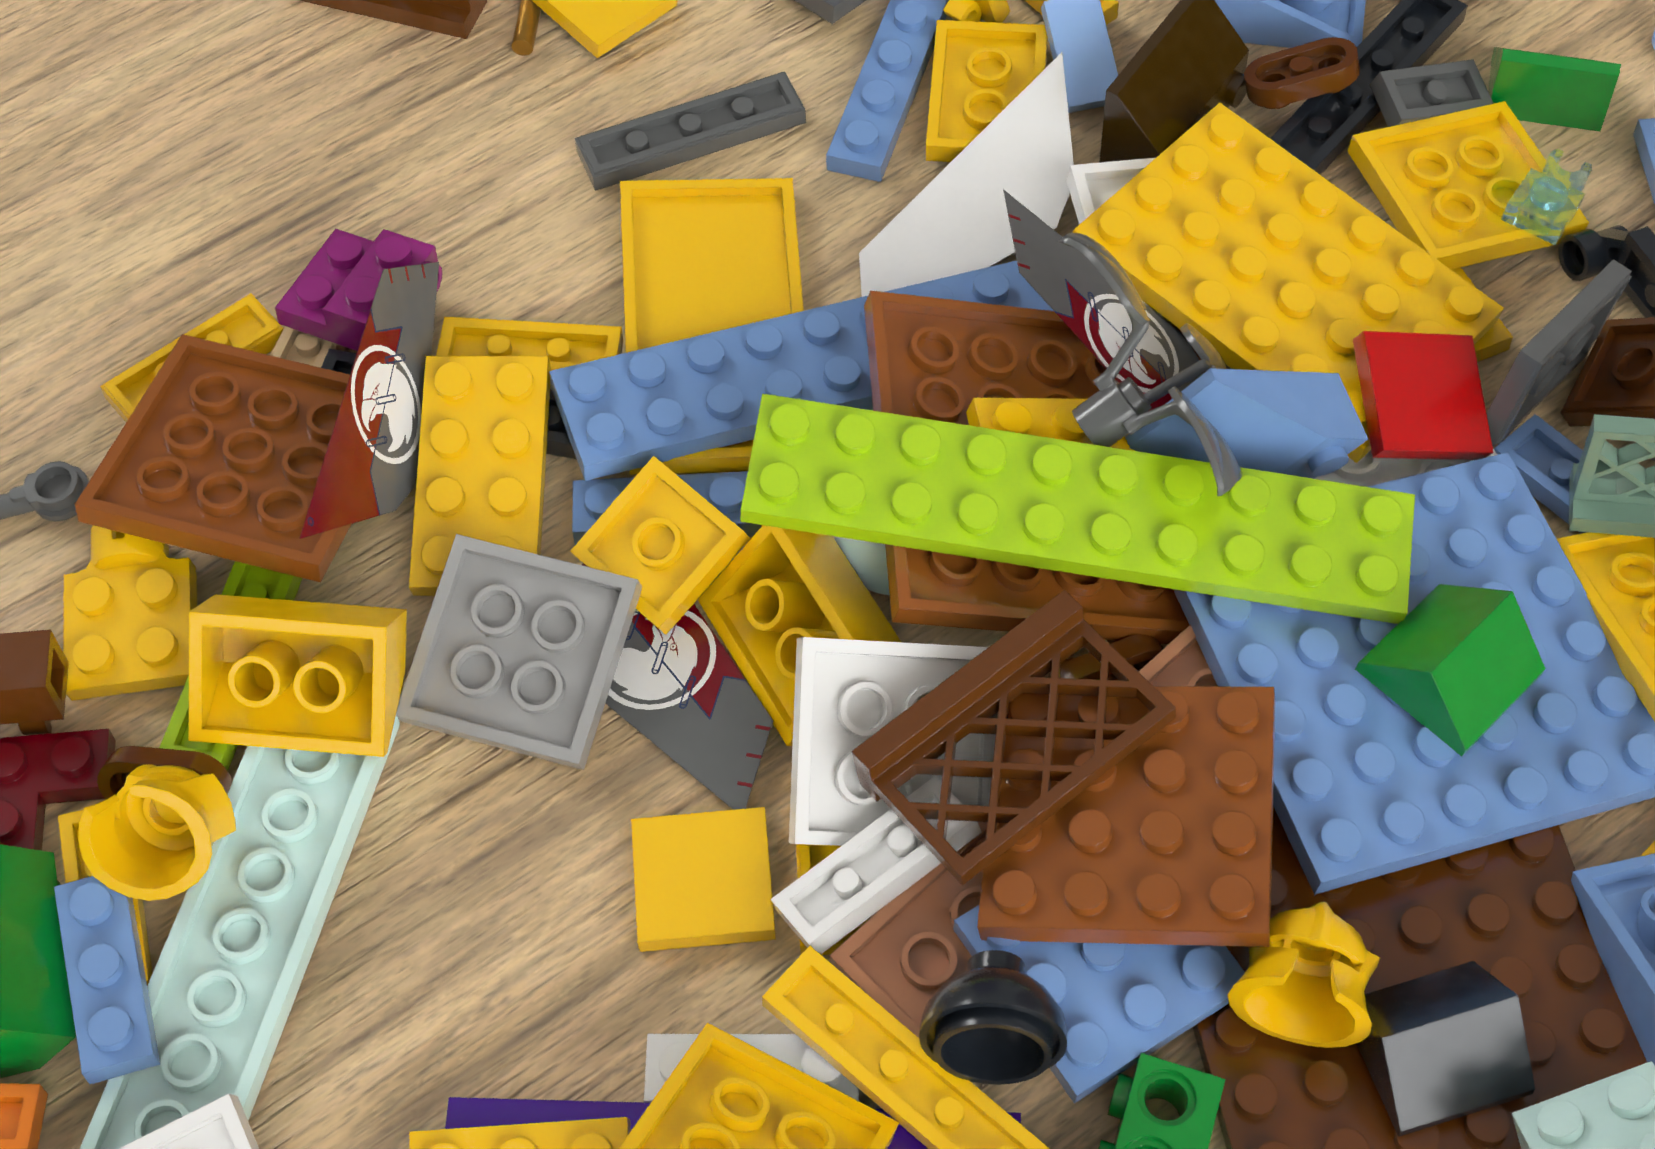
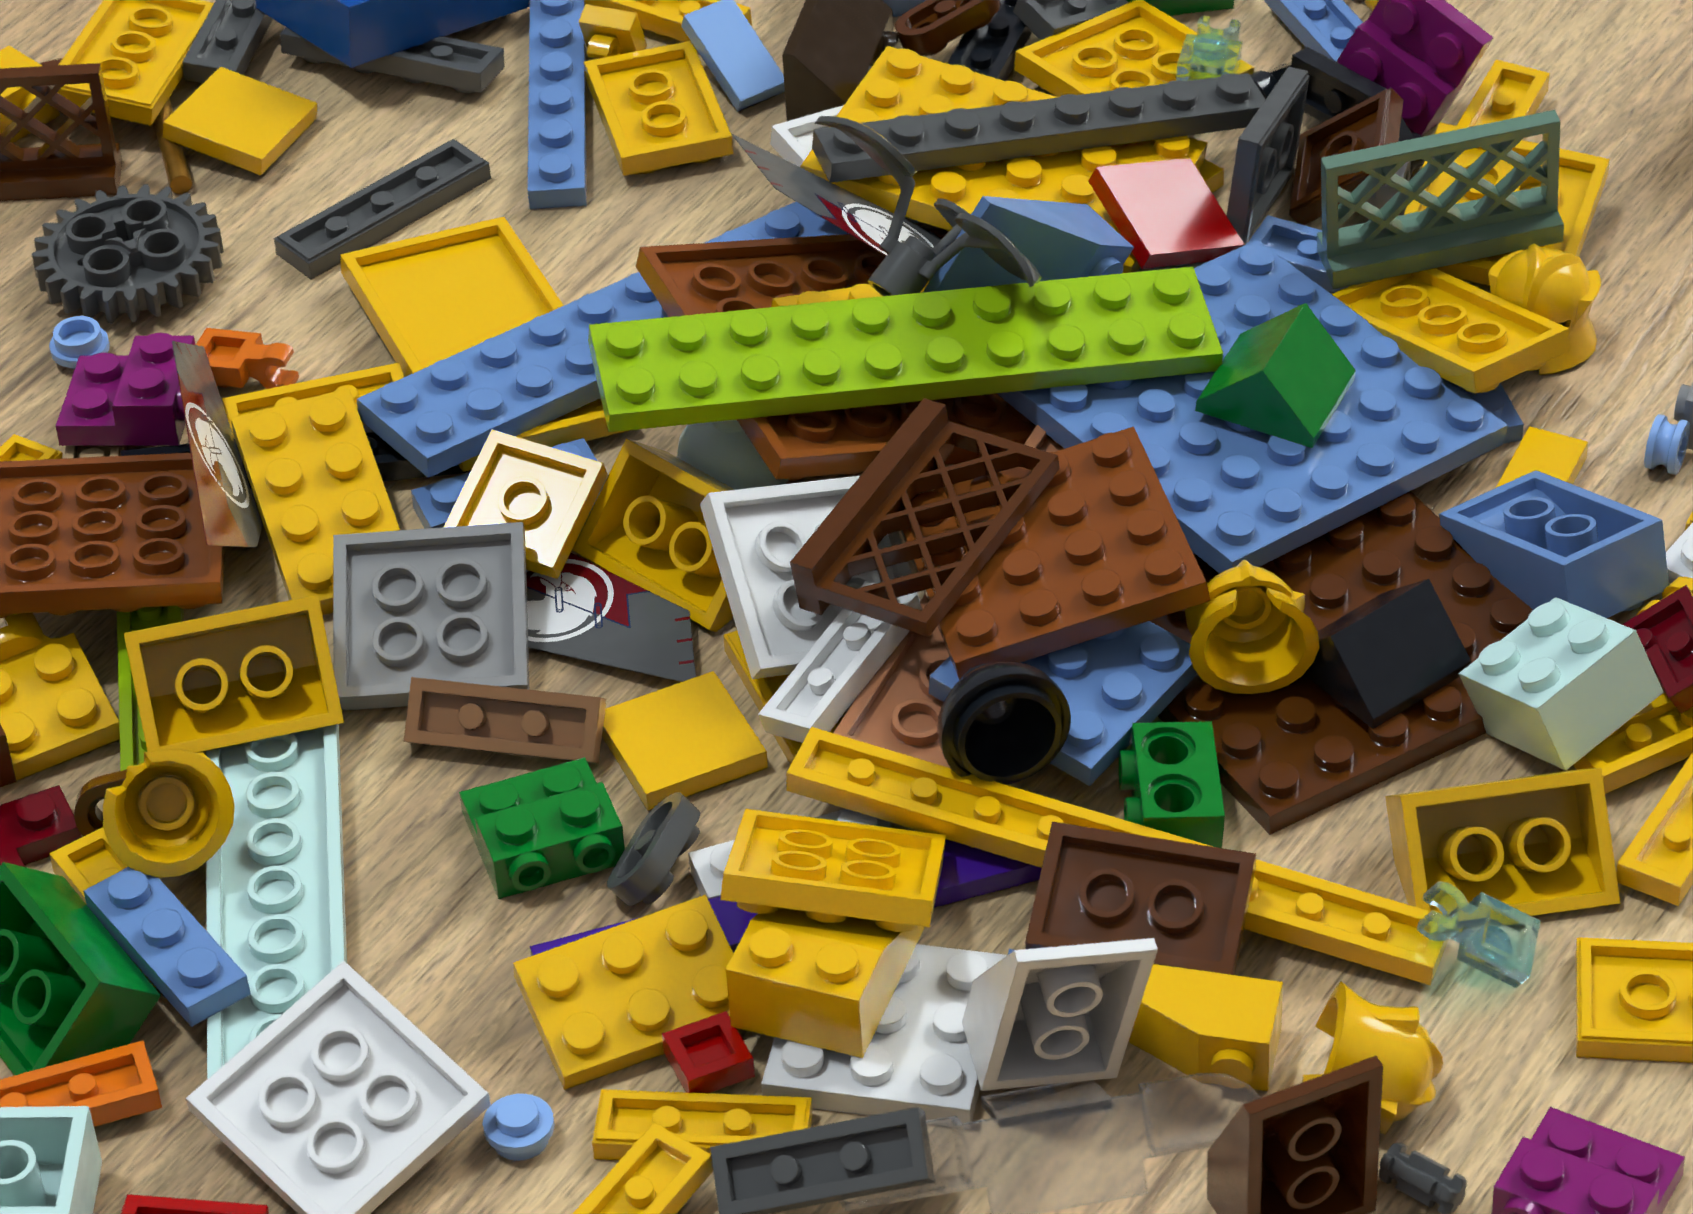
camera: 20 degrees left, 15 degrees down
(352, 205) = (77, 338): none -> light blue plate
(436, 117) = (128, 253): none -> dark grey gear
(479, 267) = (241, 355): none -> orange plate
(525, 944) = (543, 827): none -> green plate
(541, 801) = (504, 720): none -> medium nougat plate
(625, 1008) = (658, 841): none -> dark grey plate
(962, 213) = (697, 181): white sticker -> none
(1336, 253) = (1047, 125): none -> dark grey plate

